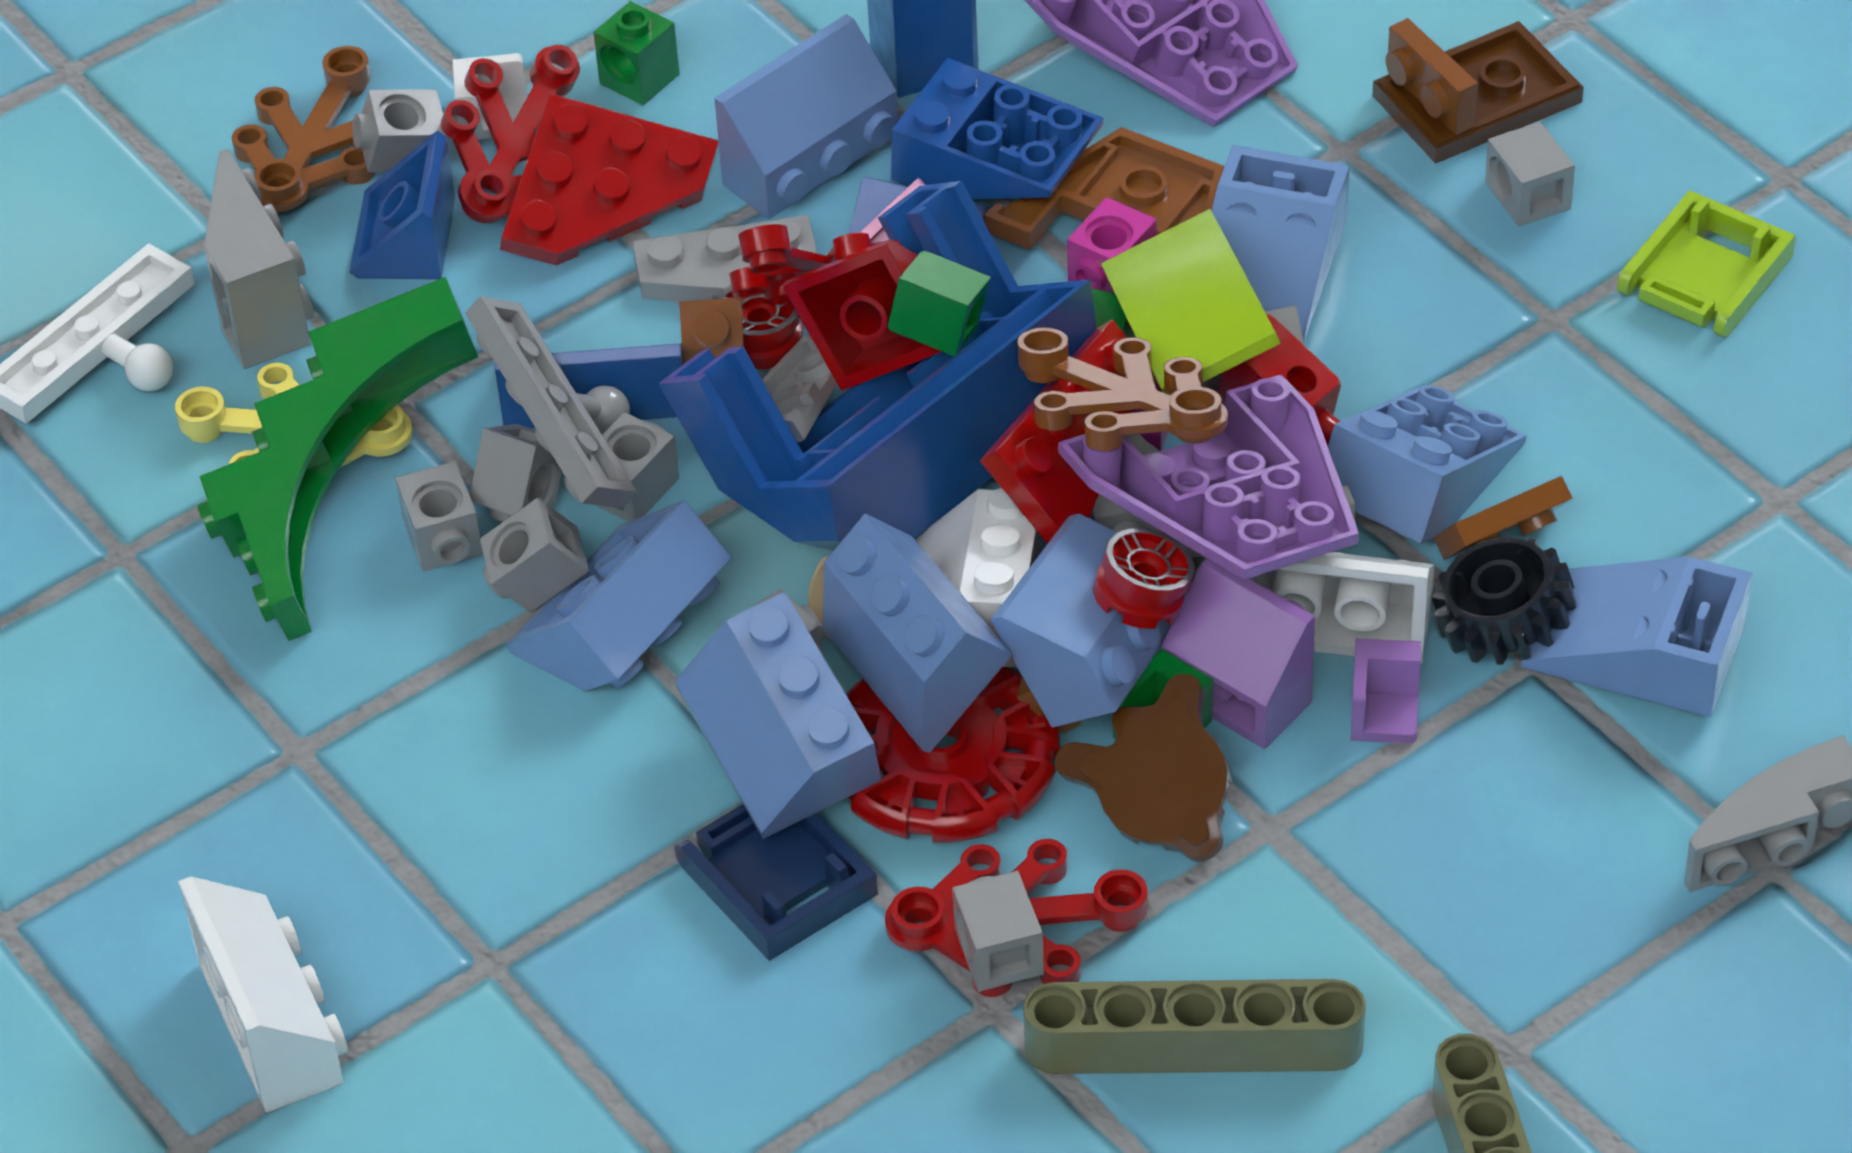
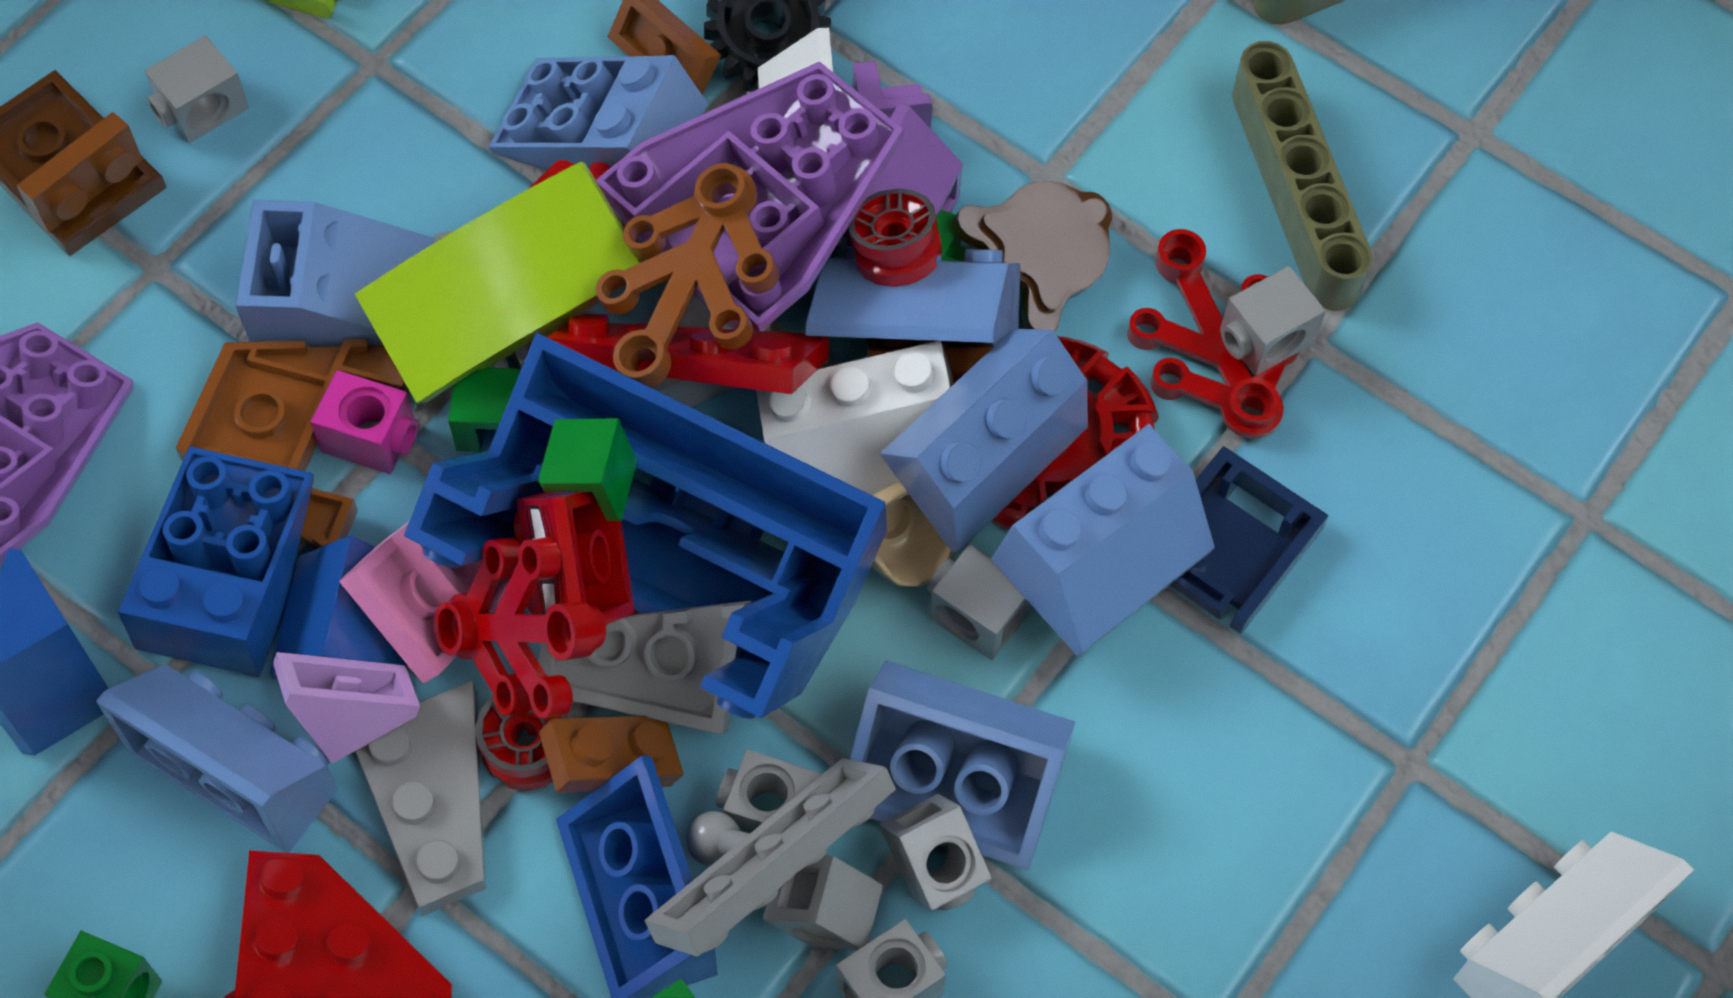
camera: 110 degrees left, 15 degrees up
(824, 186) = (345, 700): none -> lavender slope

